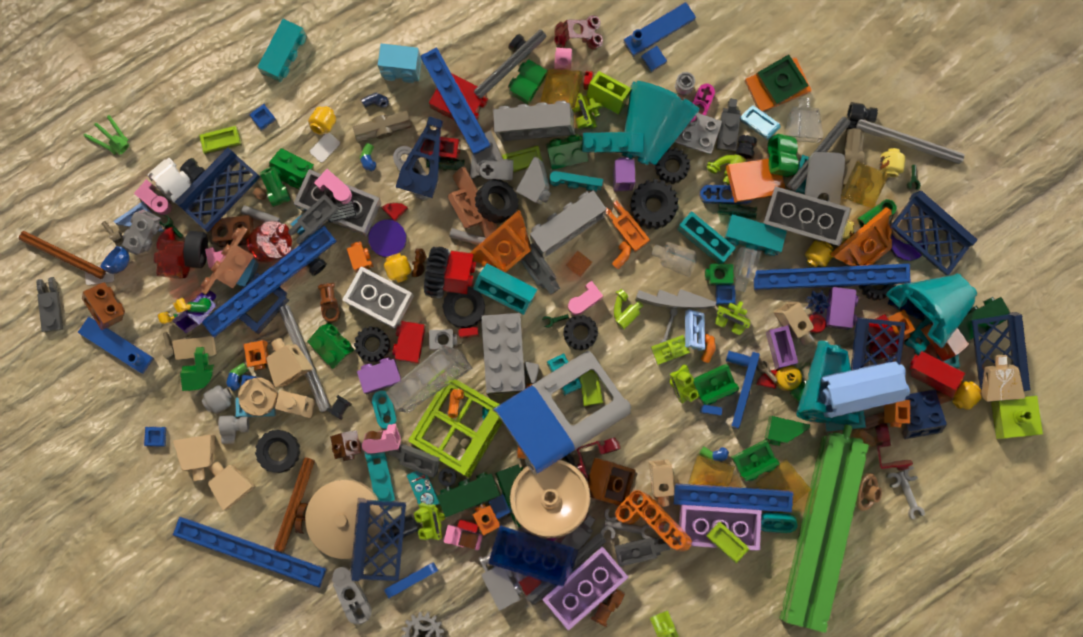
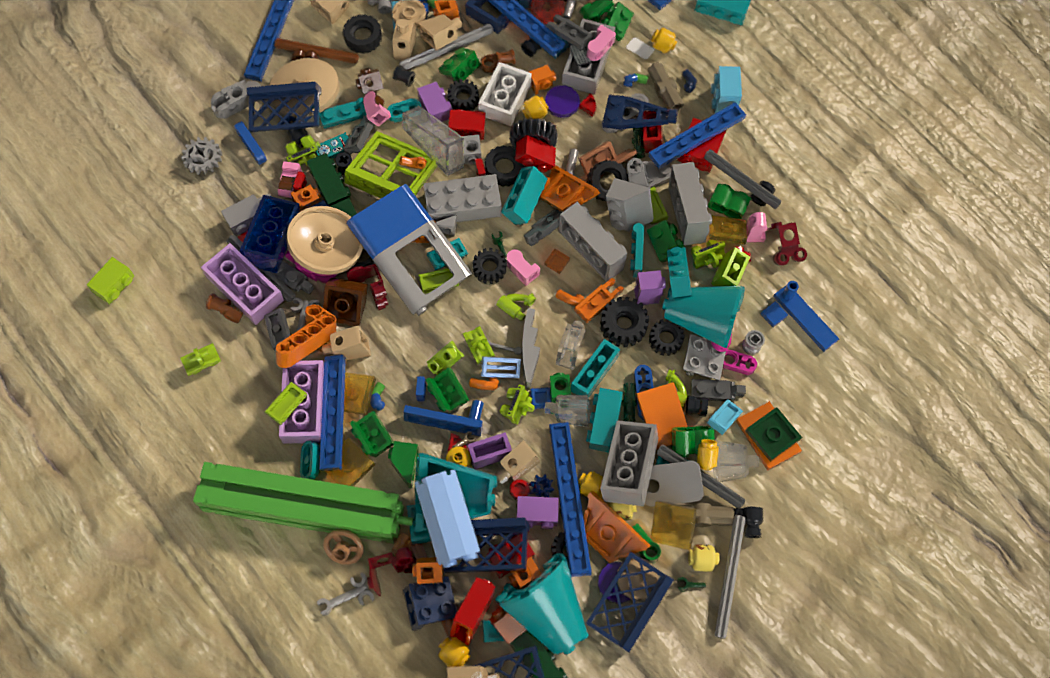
camera: 85 degrees right, 15 degrees down
(802, 143) = (707, 454): none -> yellow brick

